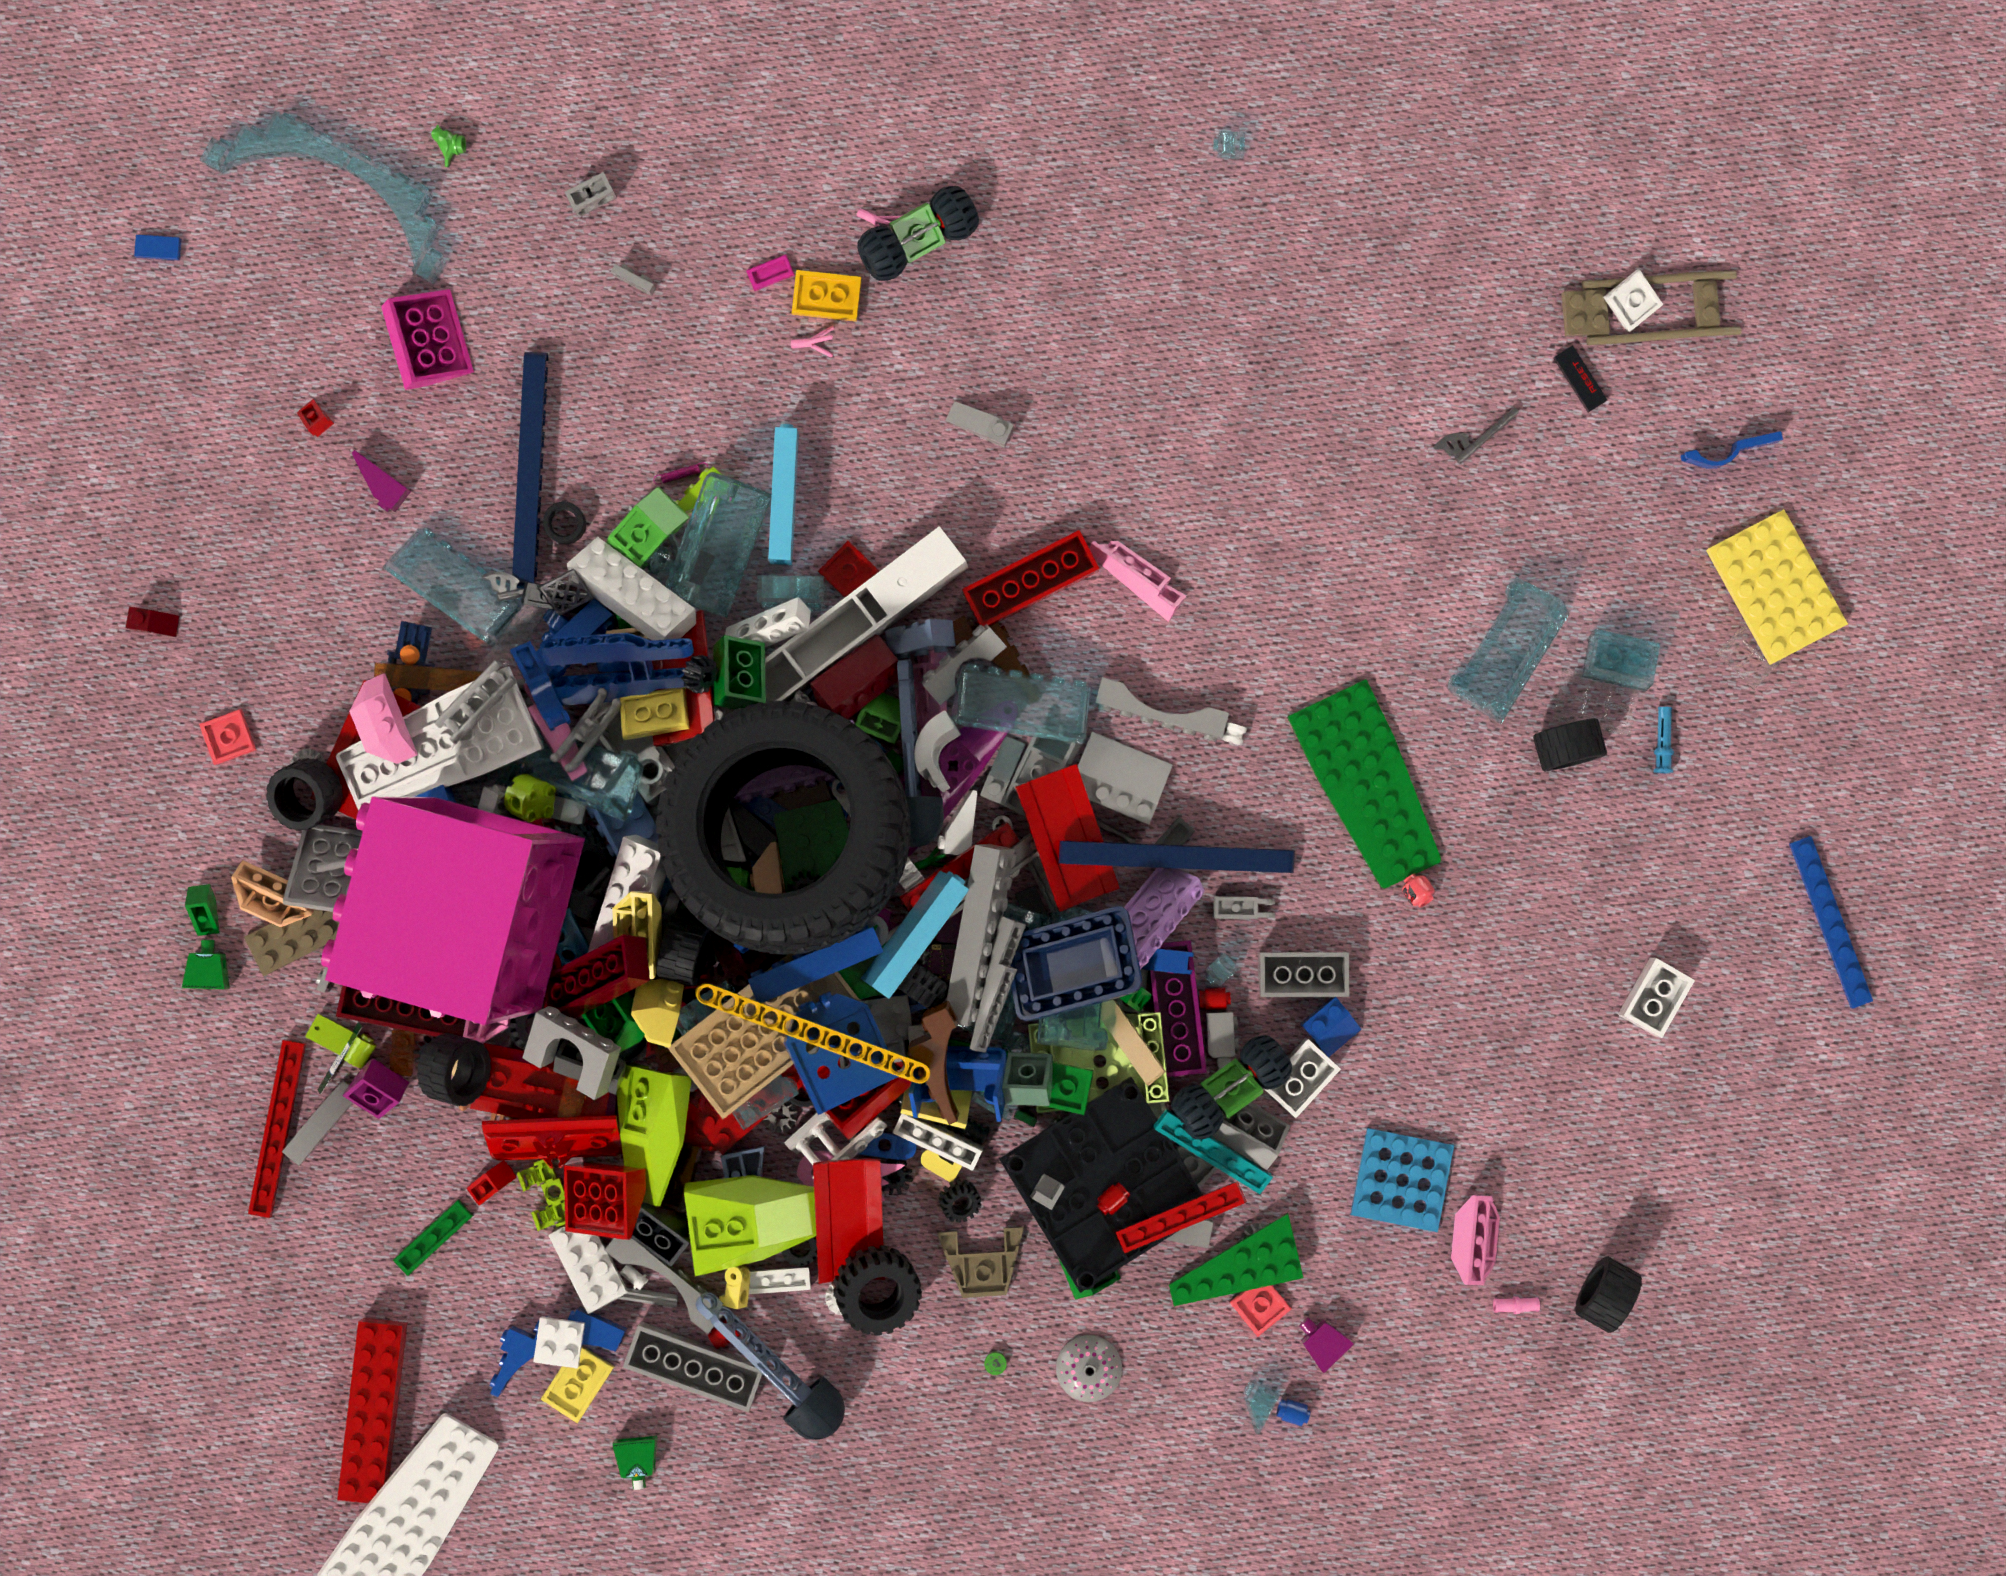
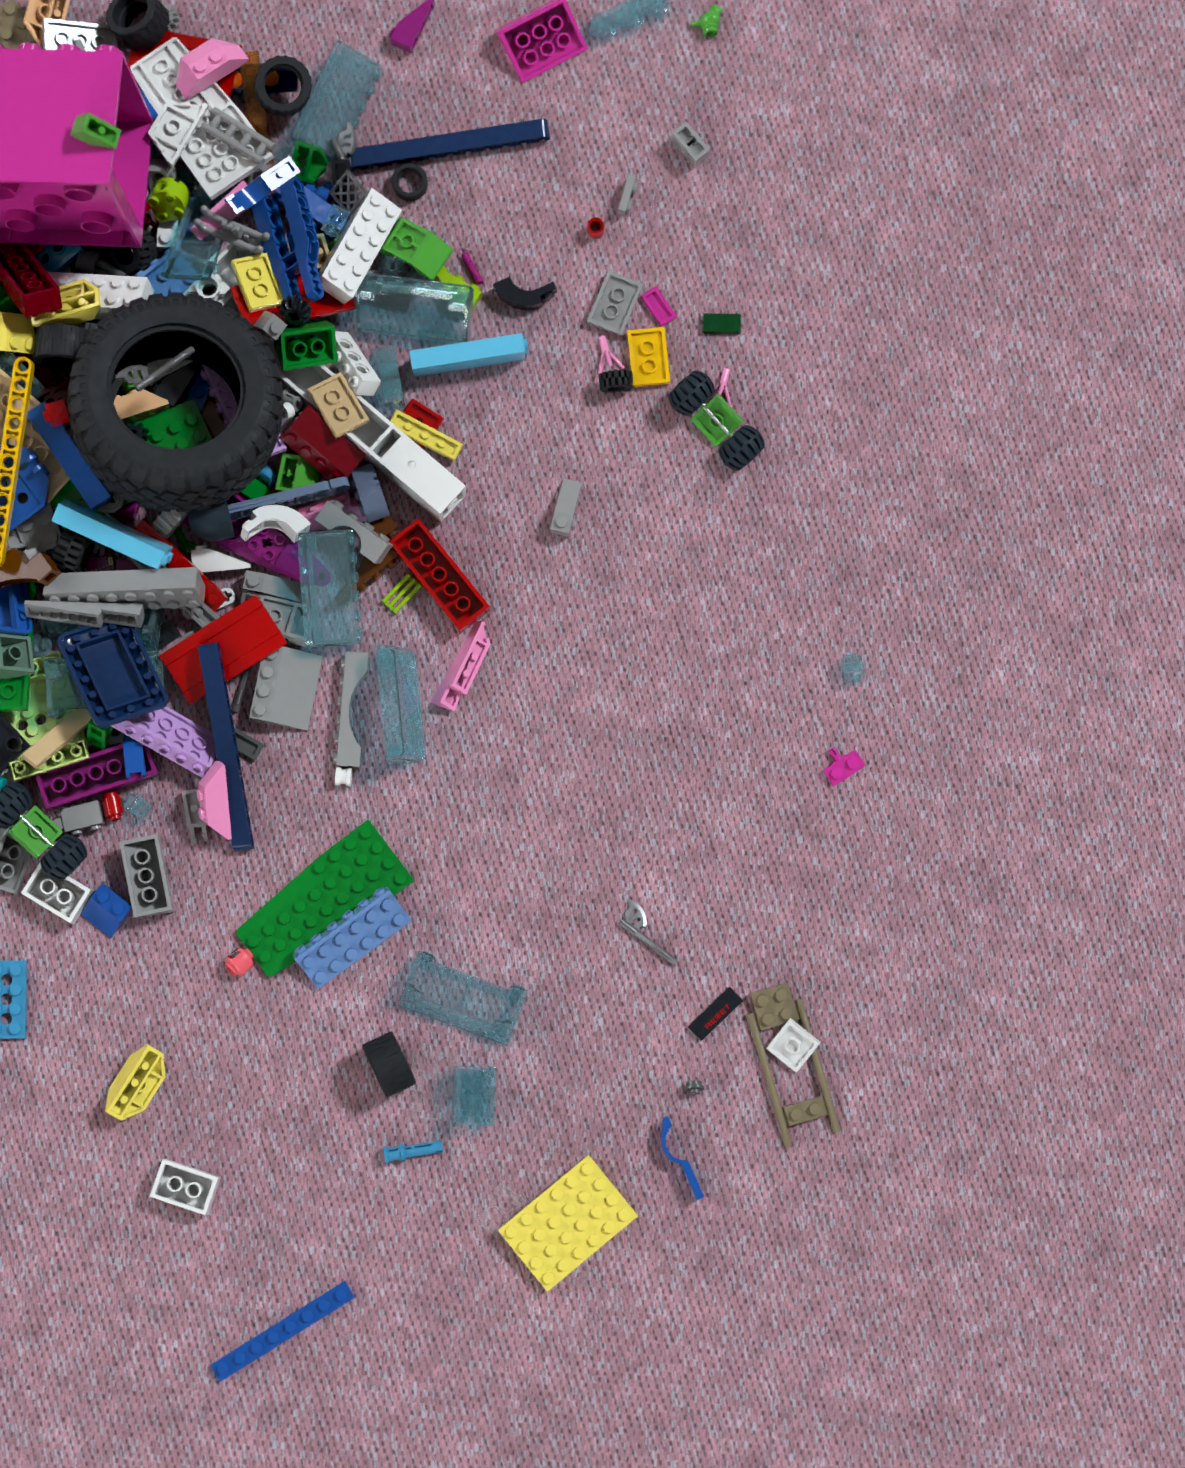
camera: 80 degrees right, 5 degrees down
(426, 613) = (292, 65): none -> black tyre
(449, 772) = (175, 127): none -> white wing
(466, 843) = (95, 131): none -> bright green slope
(516, 629) = (310, 161): none -> green slope
(592, 606) = (340, 216): none -> clear light blue brick
(660, 316) = (595, 221): none -> red beam
(712, 705) = (270, 325): none -> light grey brick
(727, 428) = (523, 299): none -> black arch
(756, 320) = (615, 303): none -> light grey plate
(761, 847) = (148, 379): none -> flat silver piece
(767, 967) = (56, 413): none -> red brick
(804, 206) = (721, 323): none -> dark green tile
(816, 650) = (338, 405): none -> tan tile
(848, 336) = (616, 381): none -> black tyre
(865, 562) = (427, 436): none -> light yellow tile
(1049, 643) = (412, 582): none -> lime tile
(1169, 653) = (400, 705): none -> clear light blue windscreen
(1235, 879) = (214, 800): none -> bright pink wedge
(1335, 180) = (842, 766): none -> dark pink plate
(1416, 760) = (351, 937): none -> medium blue bracket
(1530, 1031) = (136, 1083): none -> light yellow wedge
(1657, 419) = (694, 1087): none -> dark grey plate

